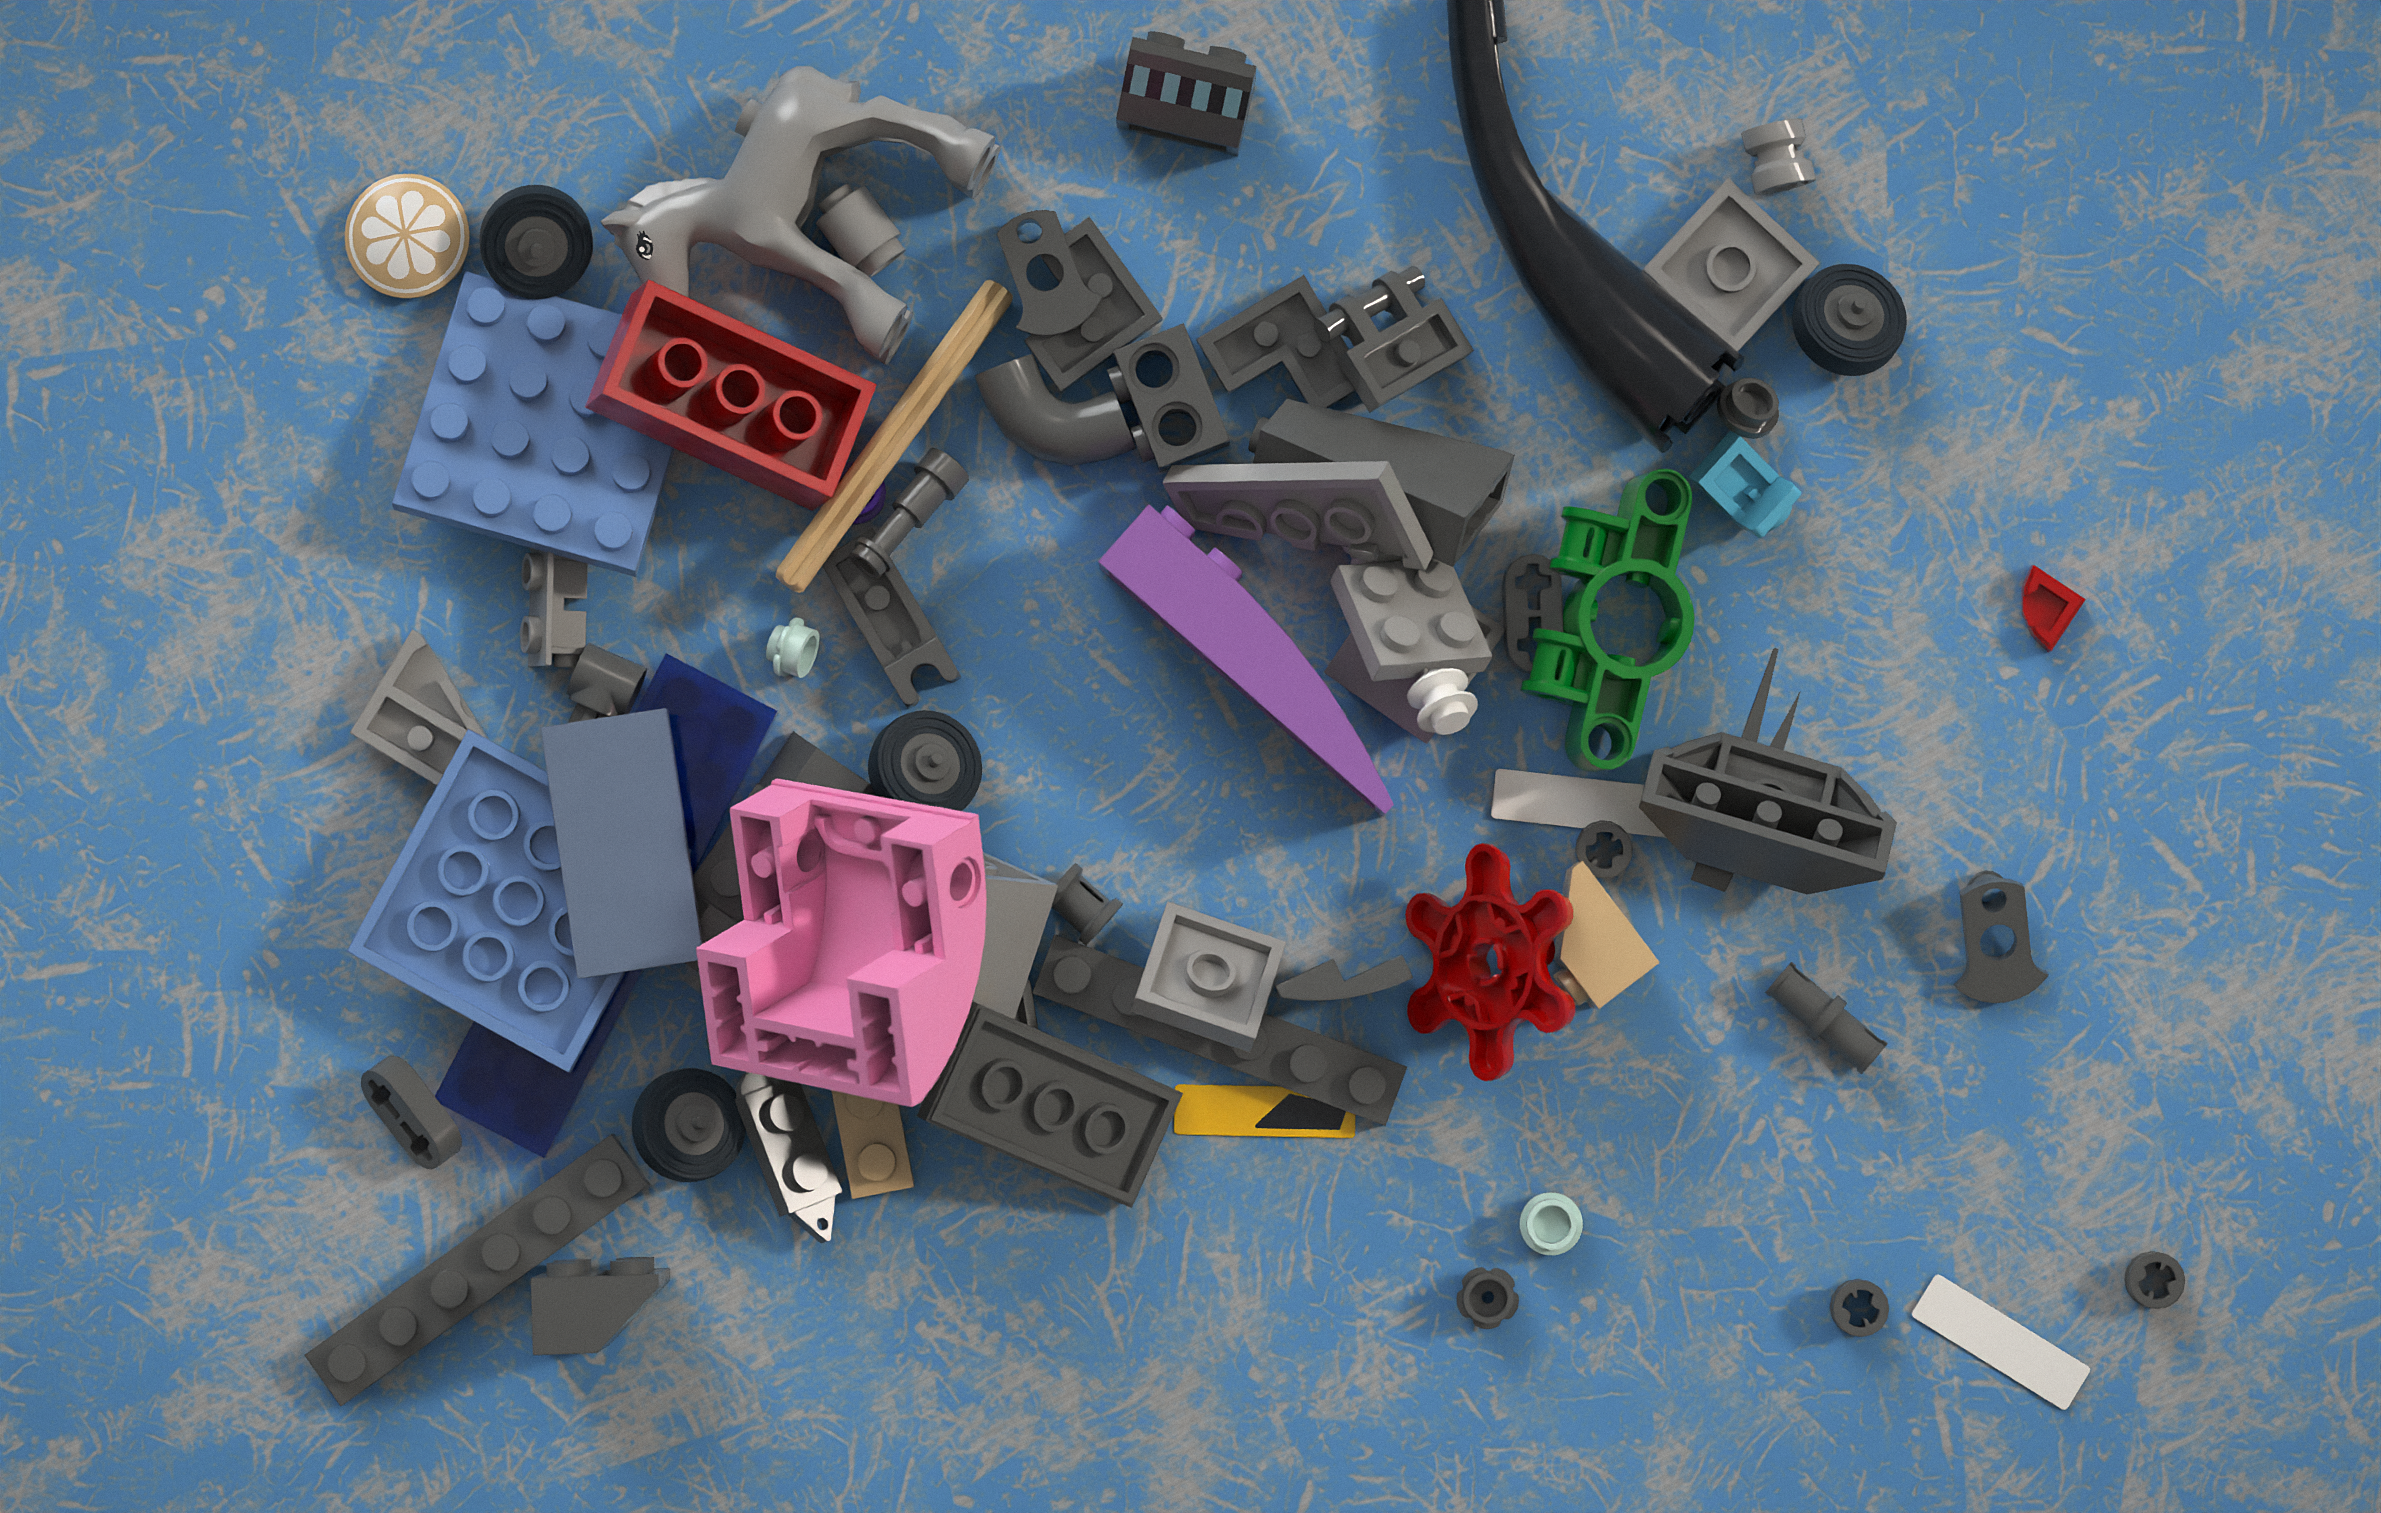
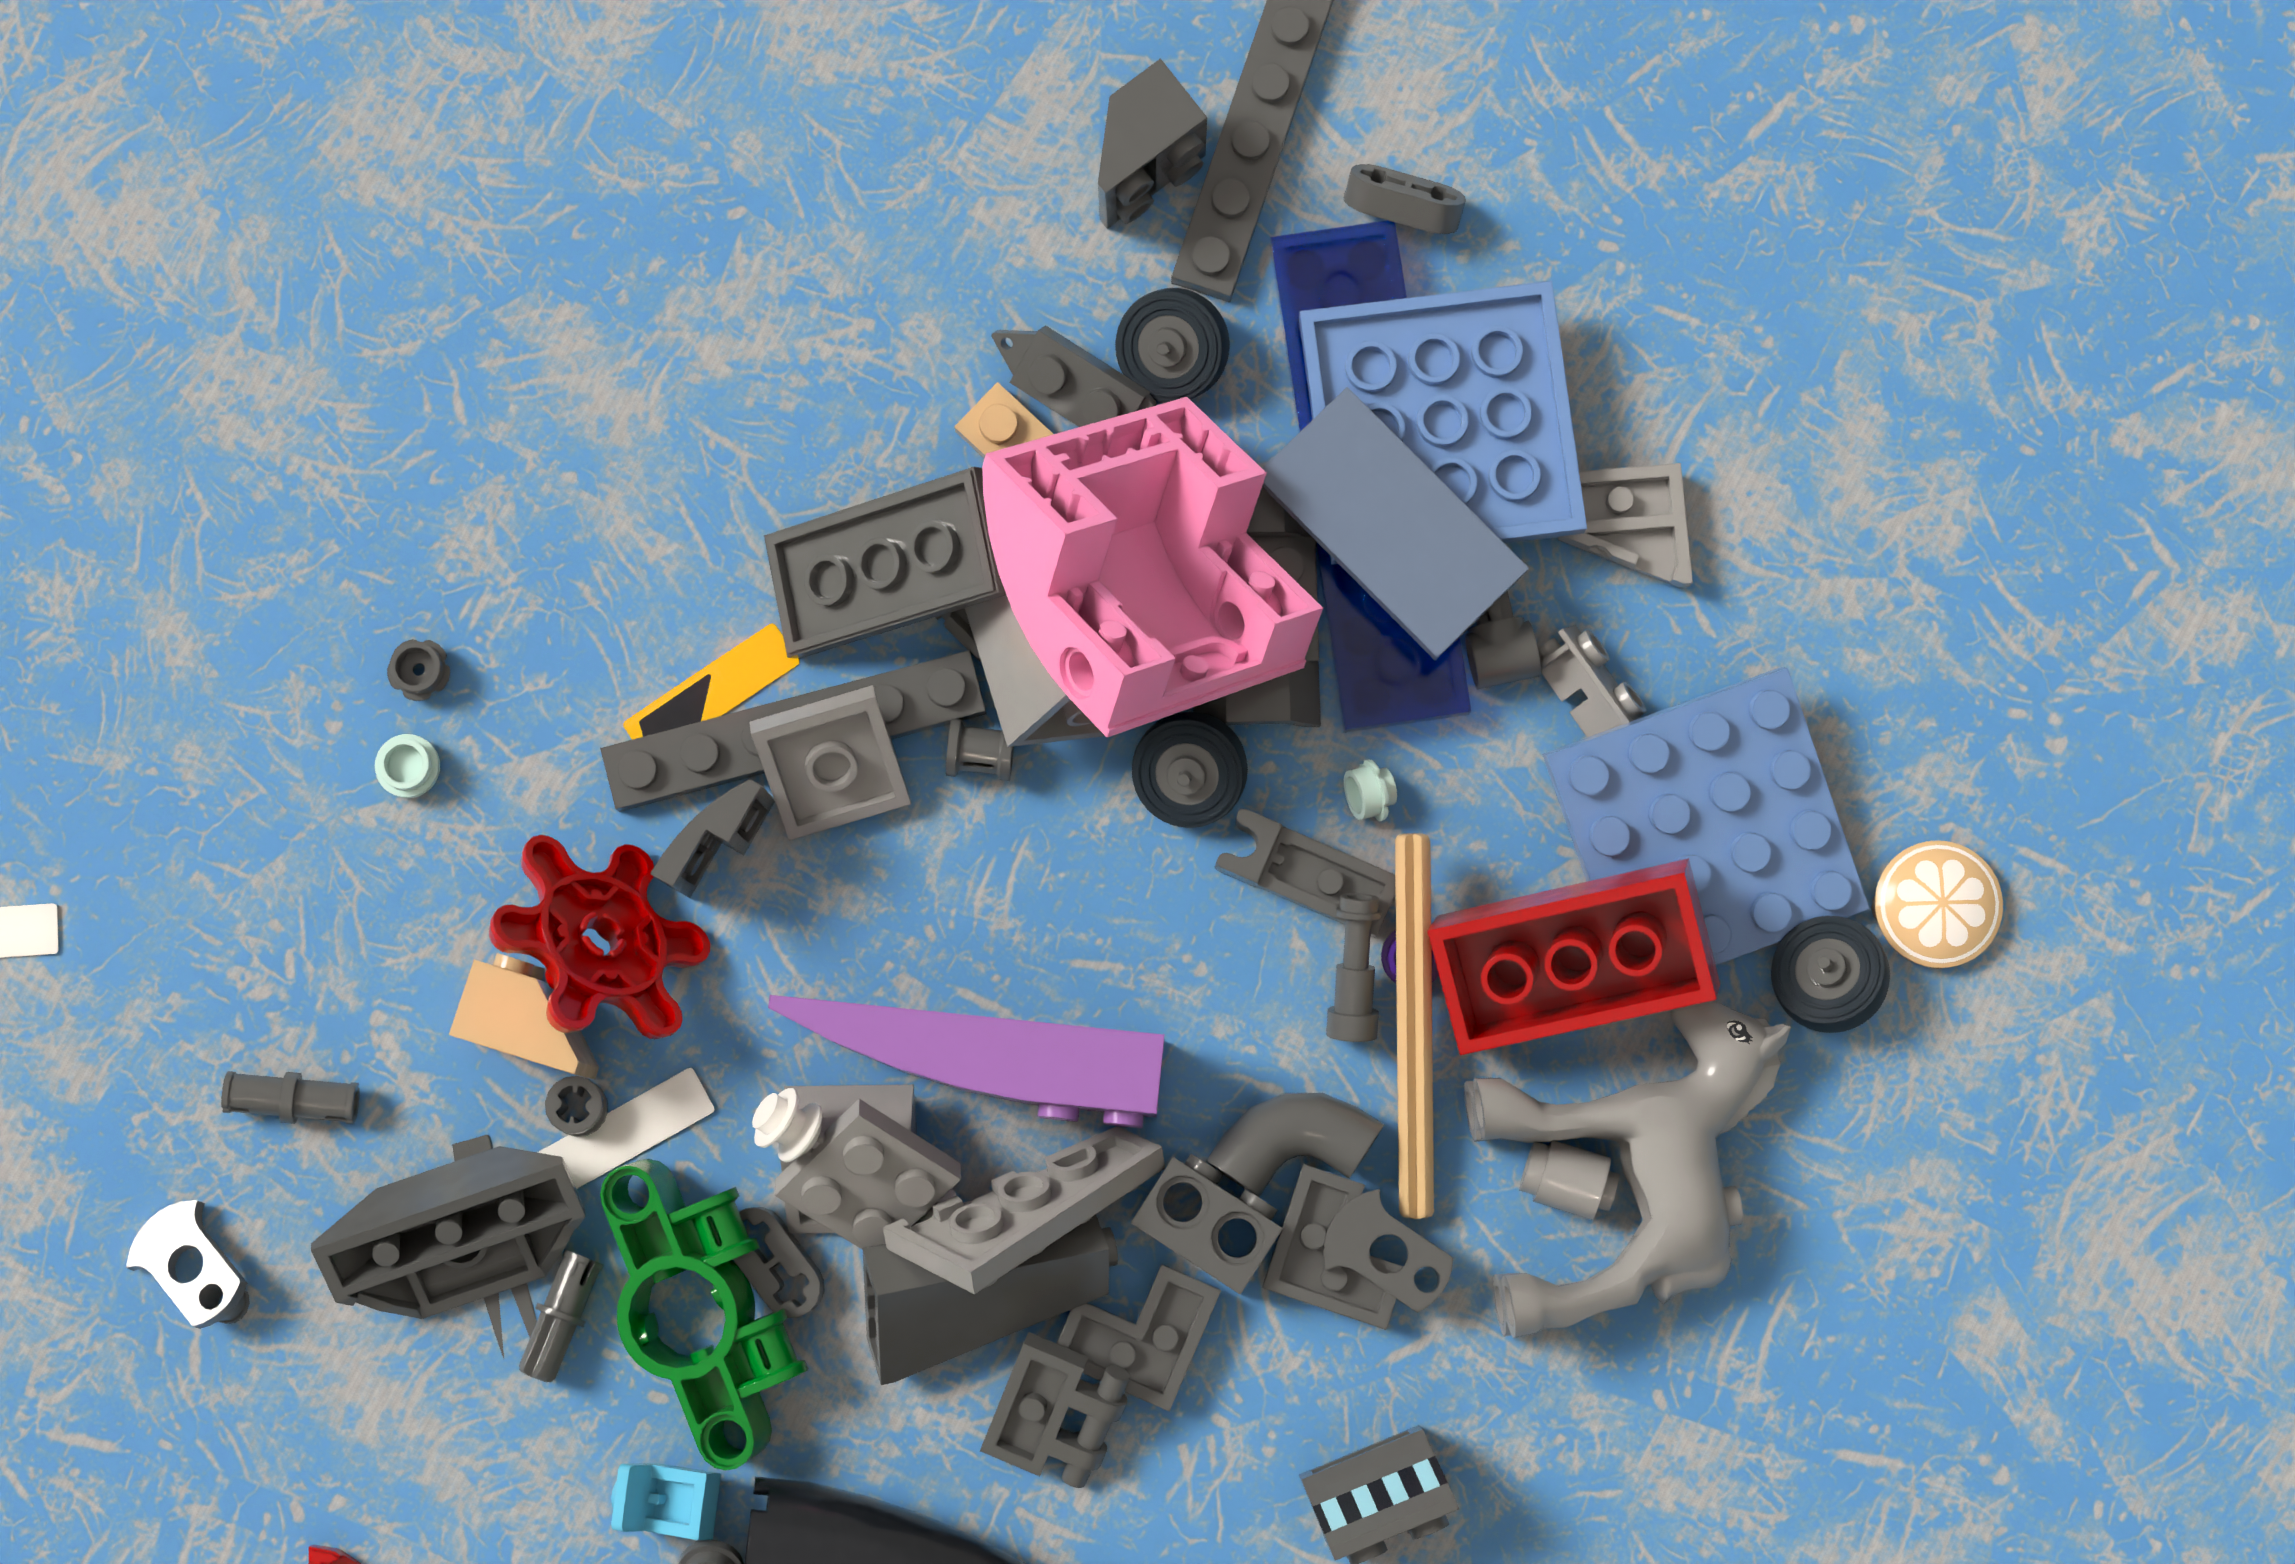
camera: 140 degrees right, 5 degrees down
(1730, 691) = (559, 1316): none -> dark grey axle
(1876, 1299) = (84, 865): dark grey bush -> none

